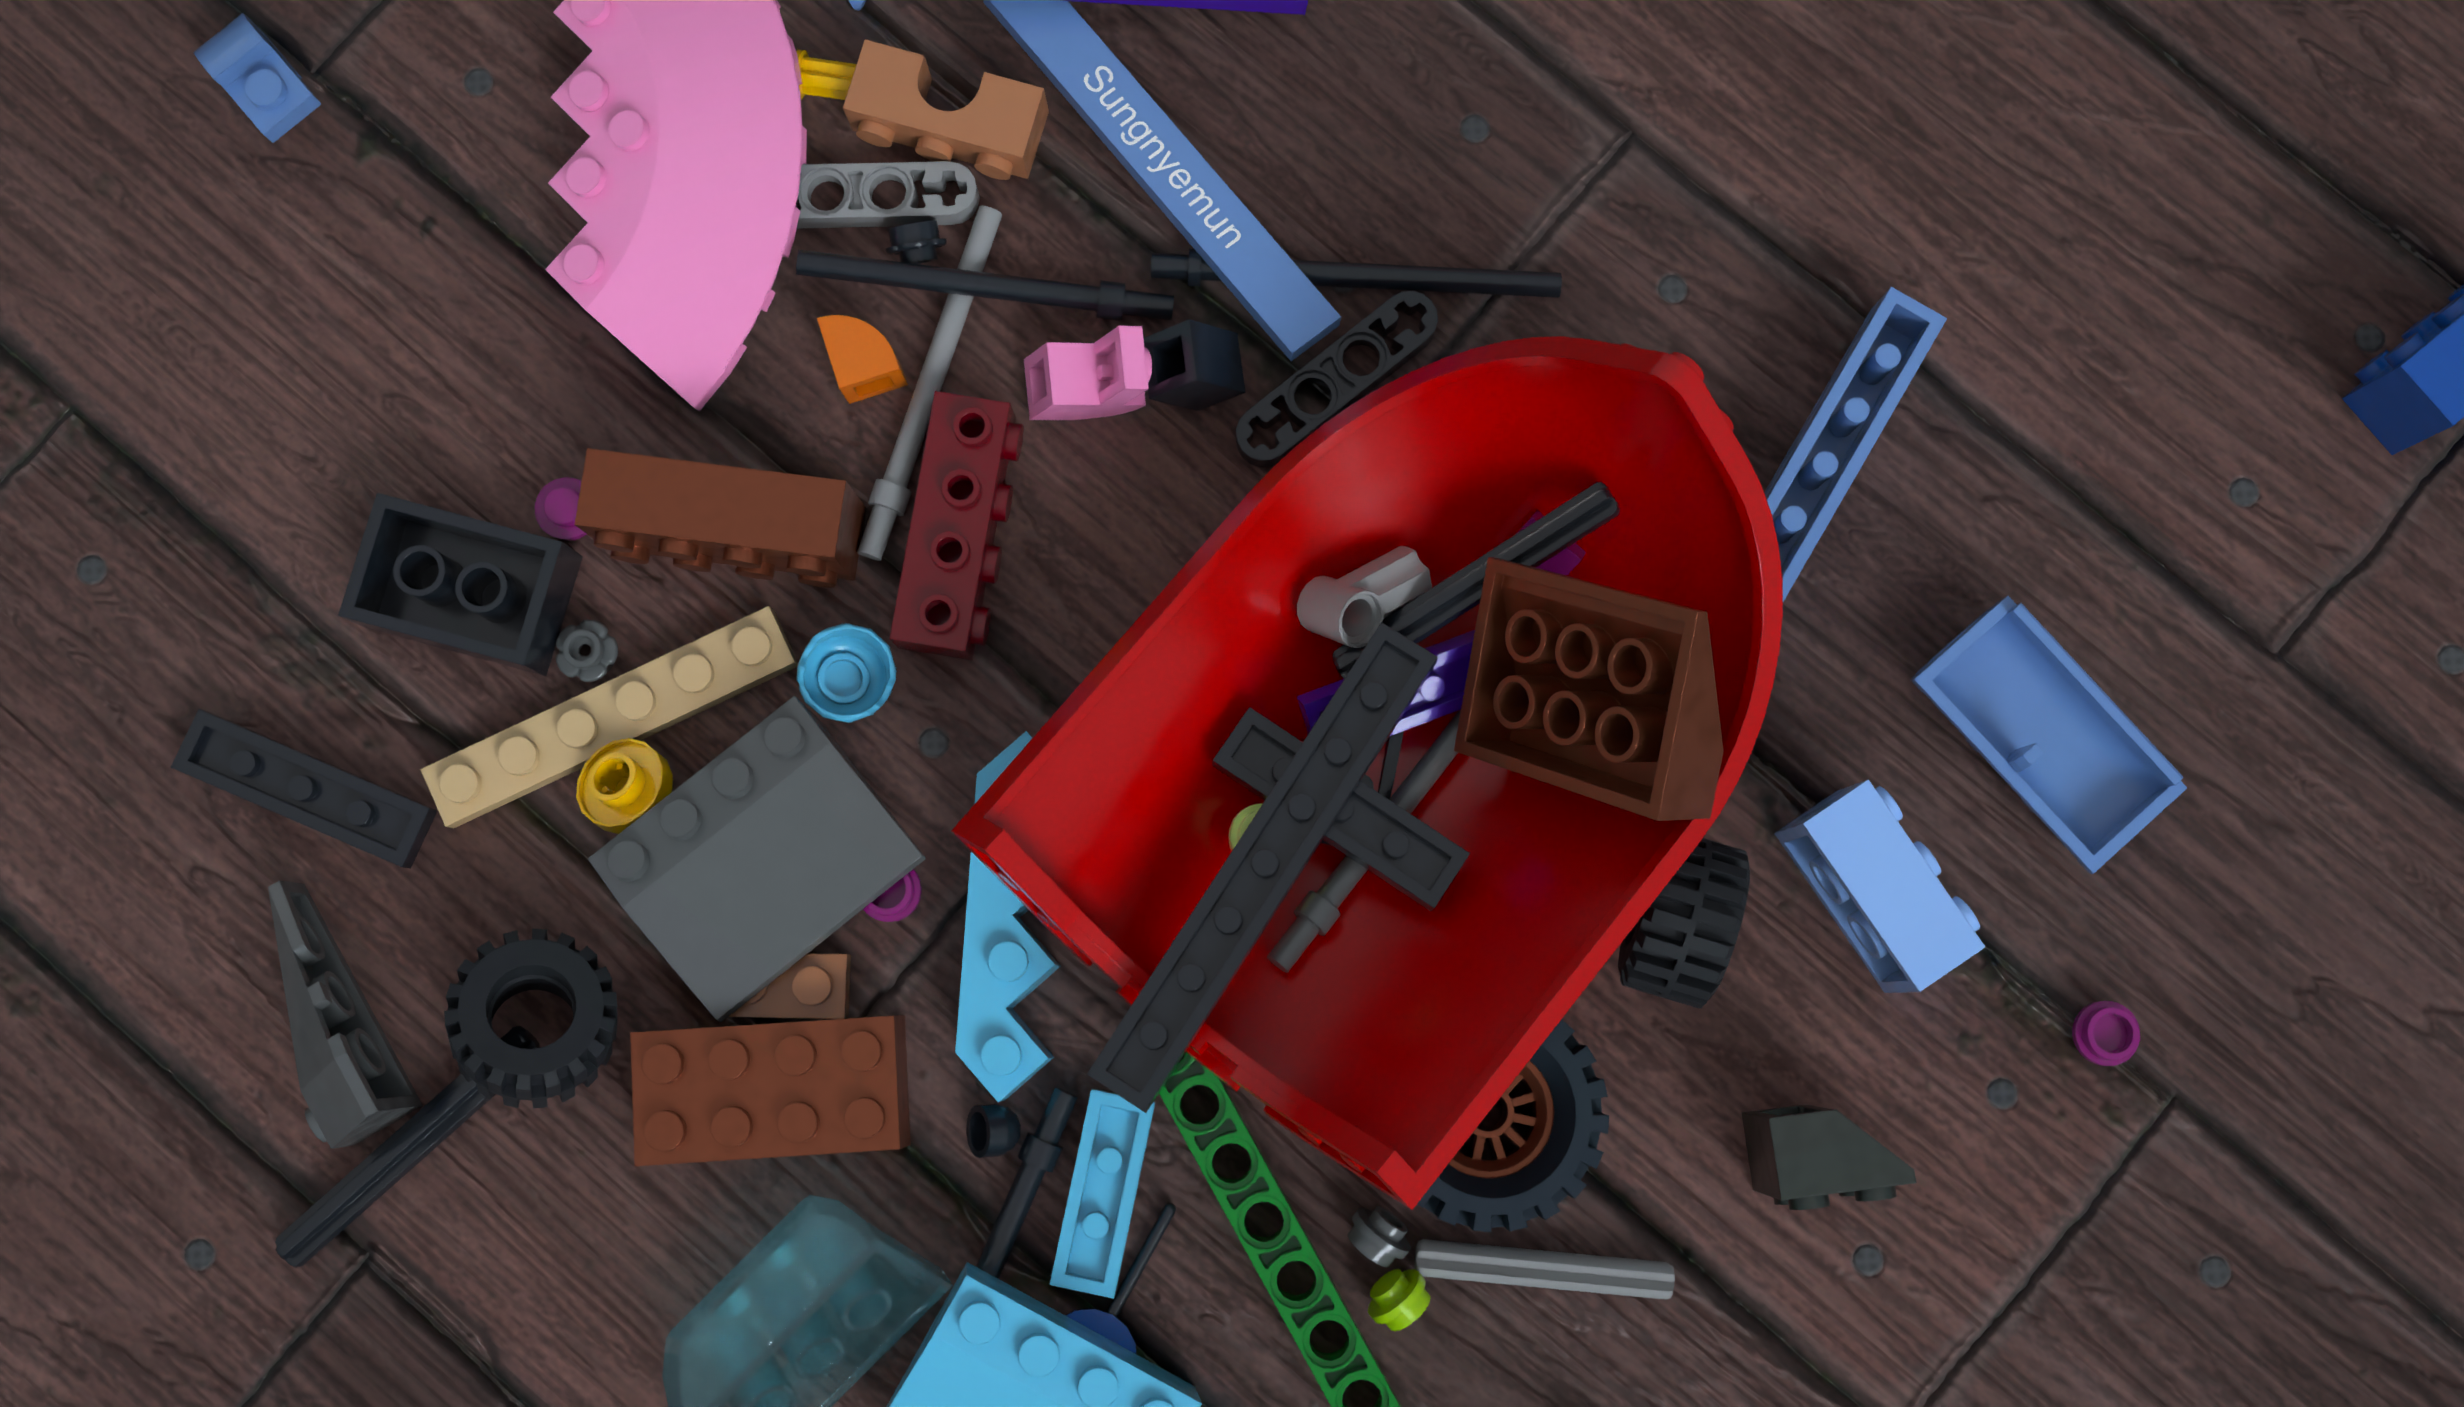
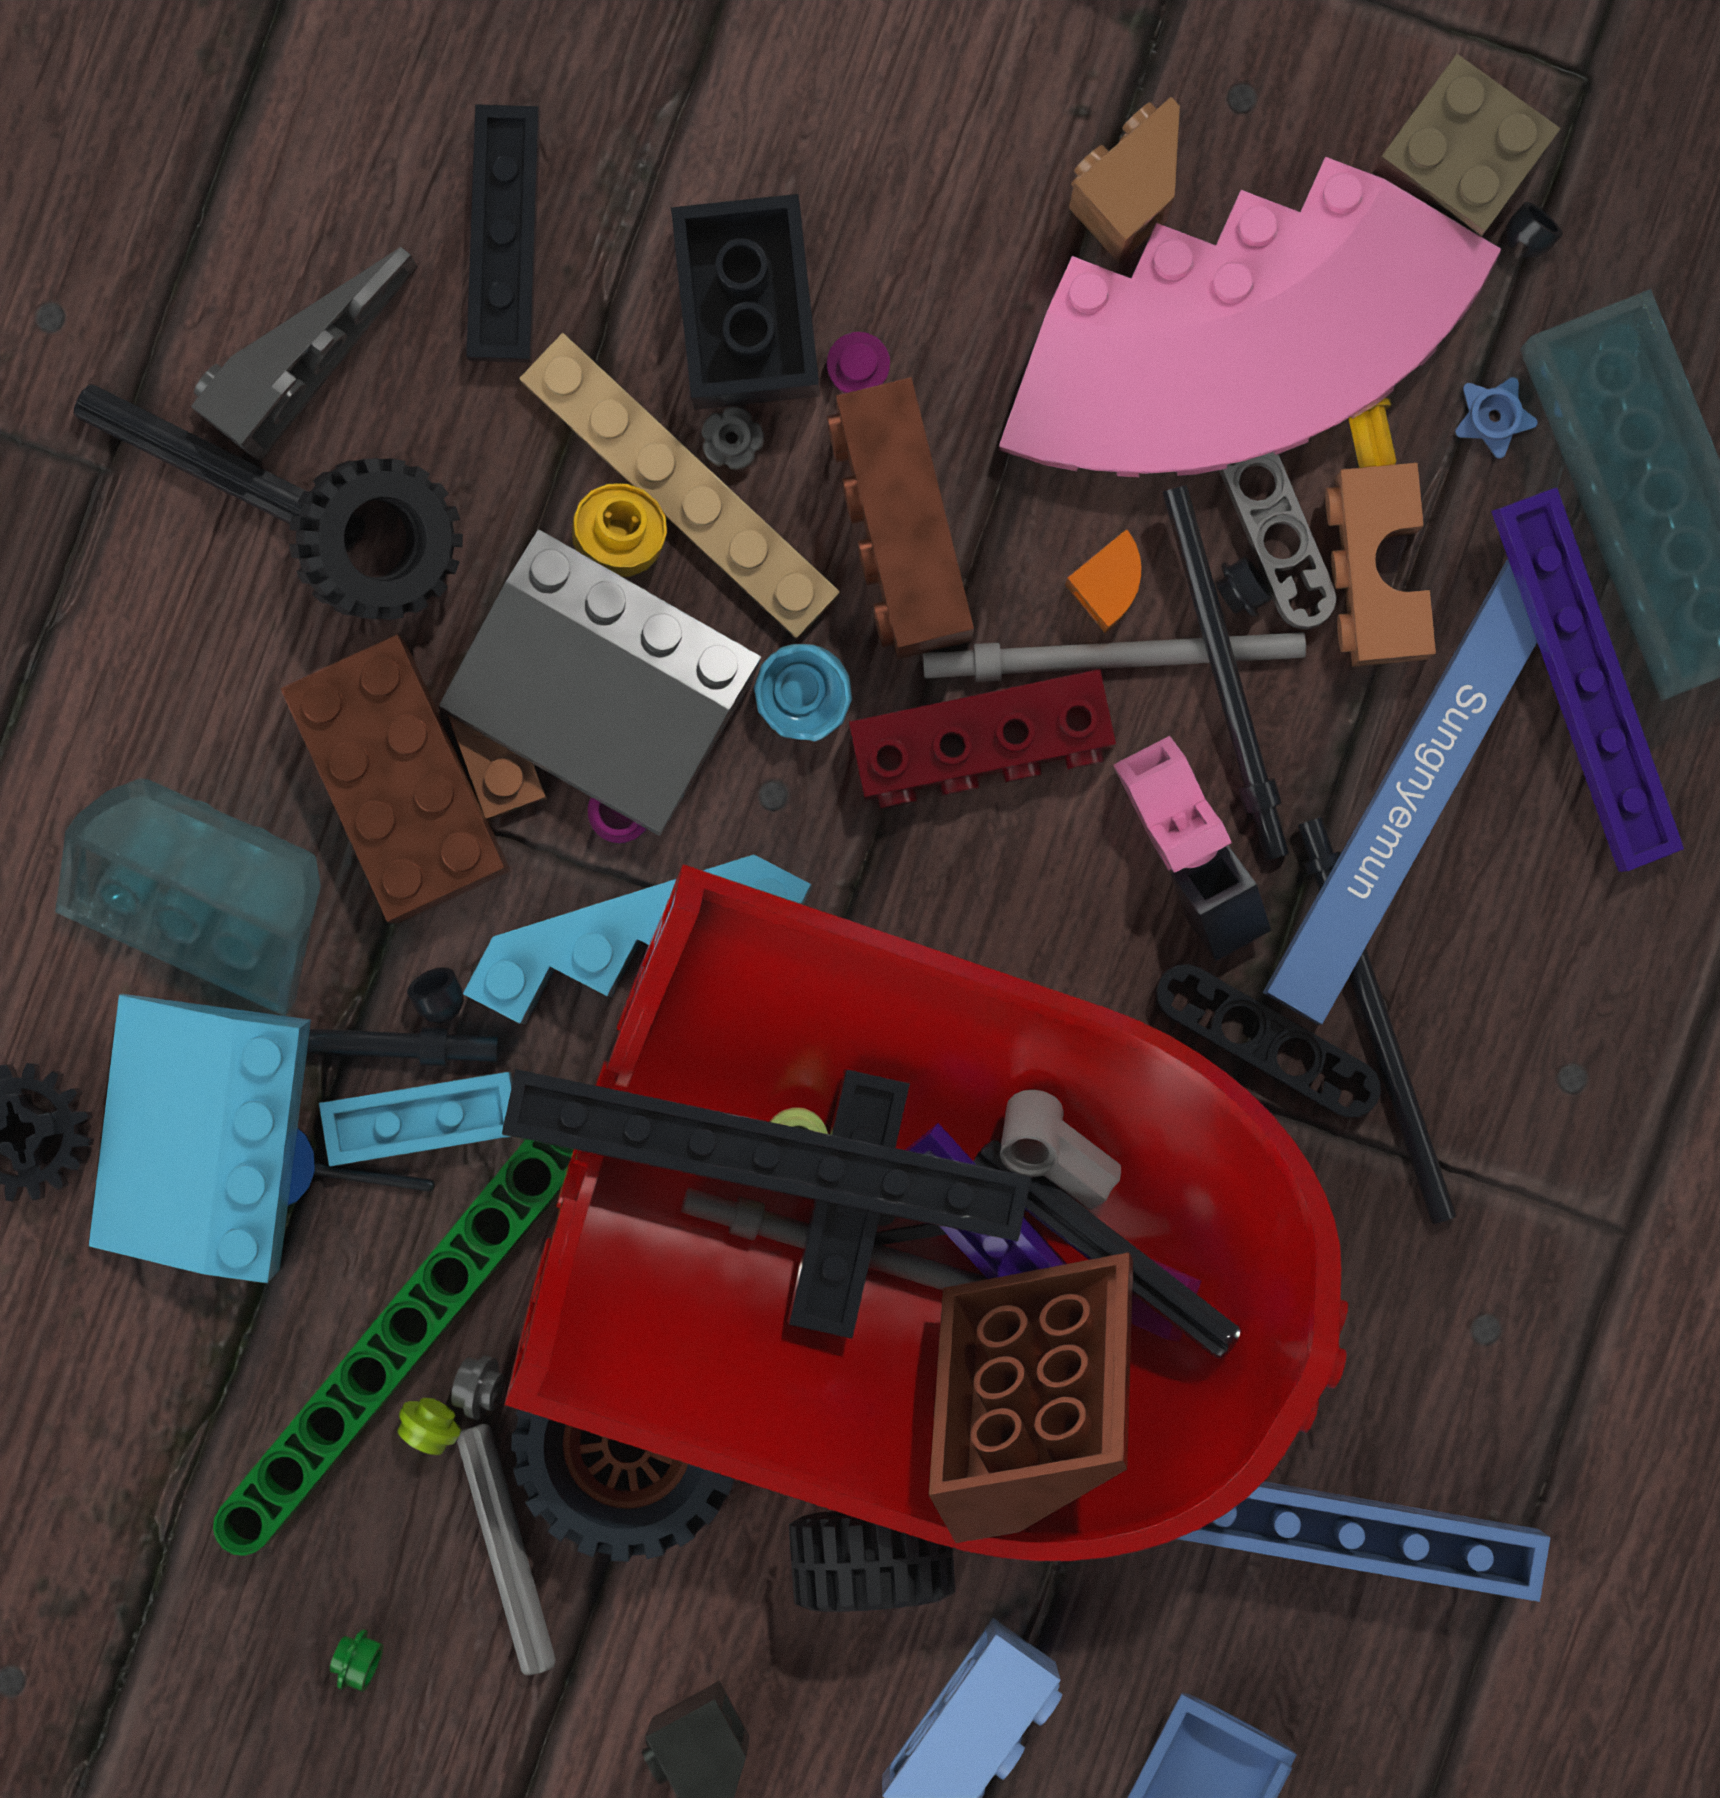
camera: 75 degrees right, 5 degrees up
(500, 193) = (1132, 185): none -> medium nougat slope

